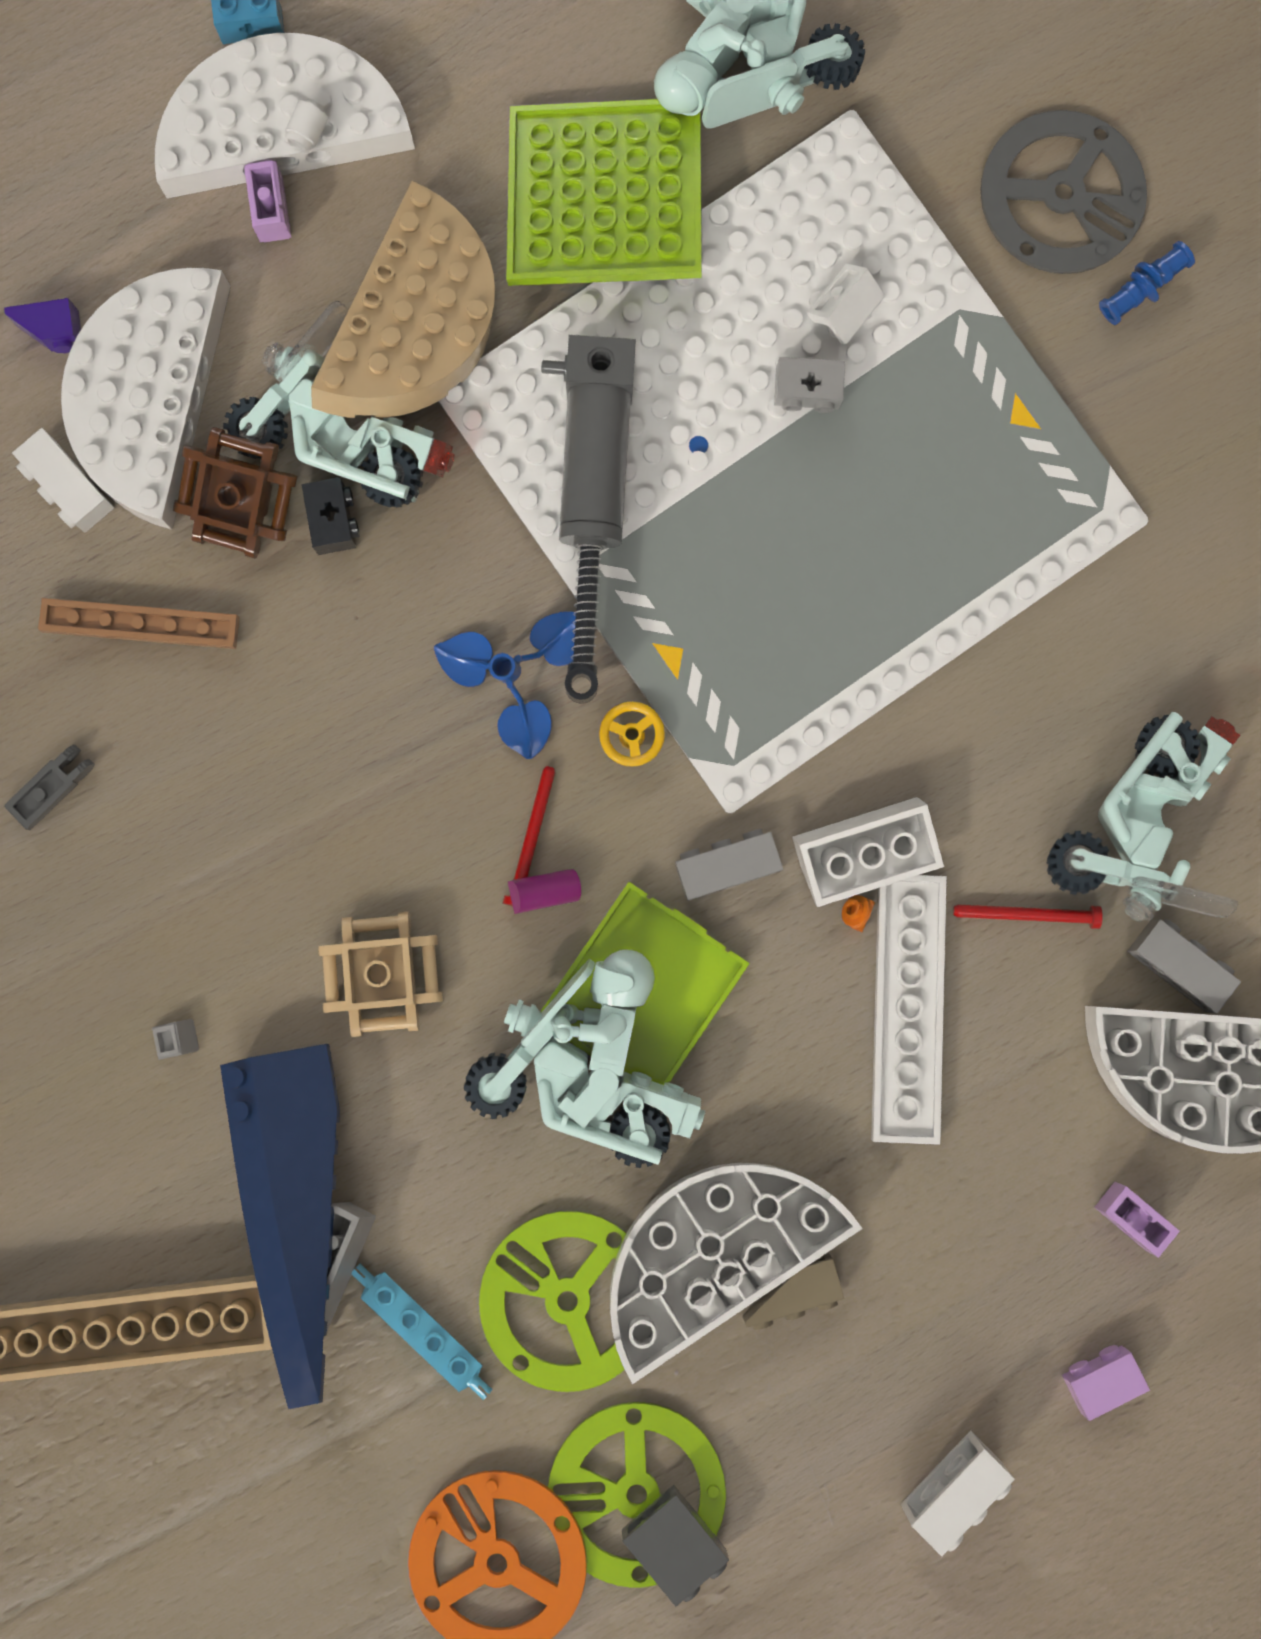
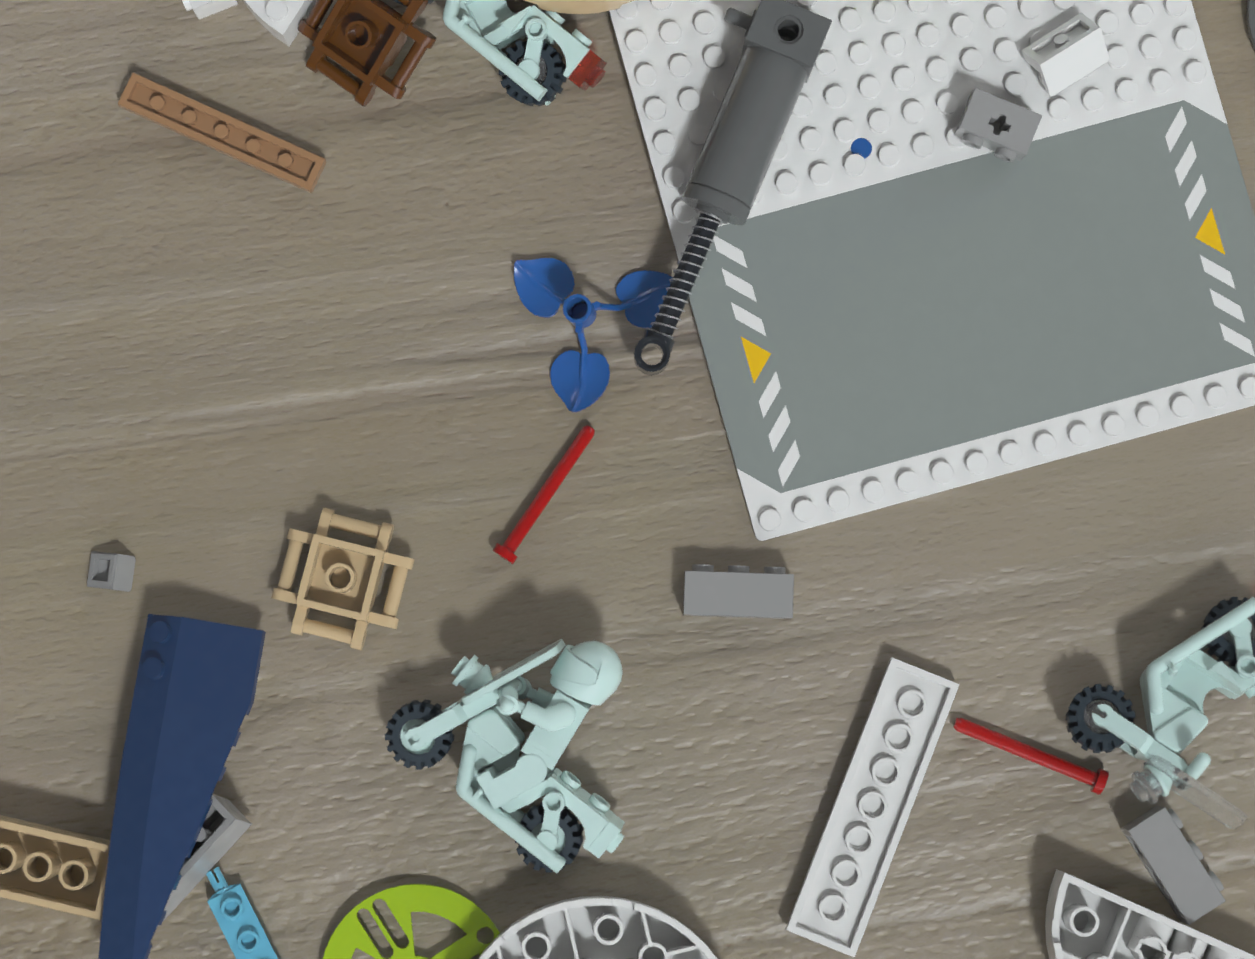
camera: 20 degrees right, 0 degrees up
(47, 788) = (70, 269): dark grey hinge -> none
(319, 500) = (450, 70): black brick -> none
(544, 890) = (540, 553): magenta brick -> none
(635, 758) = (712, 414): yellow piece -> none
(688, 987) = (658, 691): lime piece -> none
(857, 912) = (854, 689): orange plate -> none
(868, 851) = (887, 630): white slope -> none

